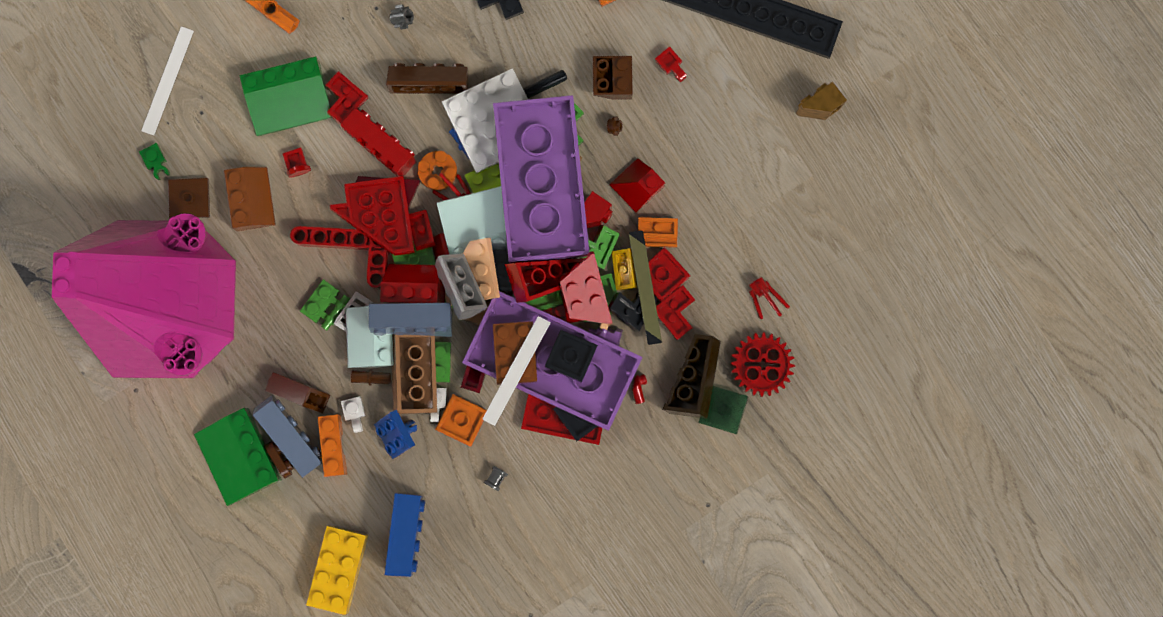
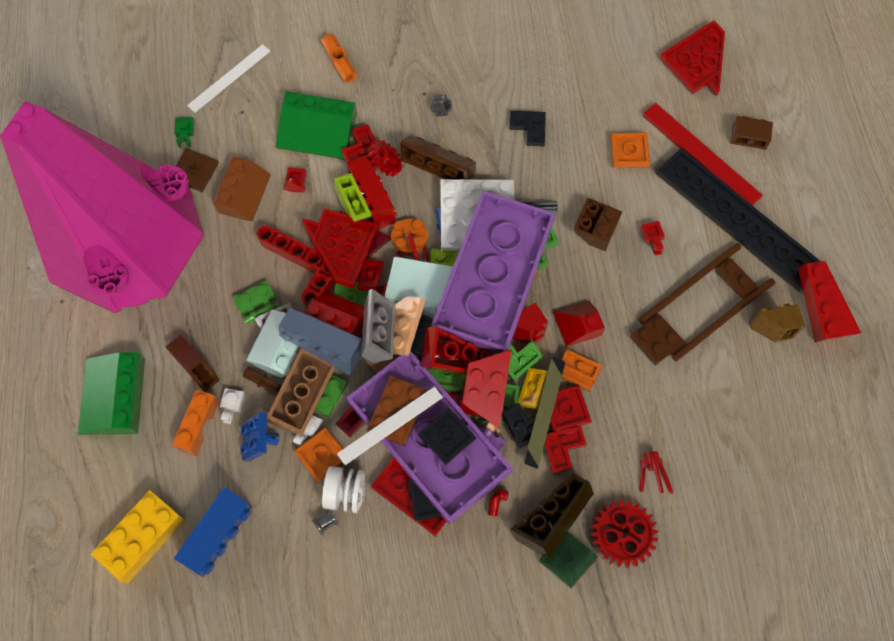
camera: 30 degrees right, 15 degrees down
(284, 466) = (144, 419): reddish brown plate -> none
(287, 435) = (161, 394): sand blue wedge -> none
(365, 161) = (351, 197): none -> lime slope
(375, 102) = (385, 158): none -> red gear
(499, 443) = (343, 489): none -> white wheel
(614, 126) = (580, 264): reddish brown plate -> none
(718, 166) = (660, 340): none -> reddish brown plate
(859, 66) = (825, 304): none -> red wedge

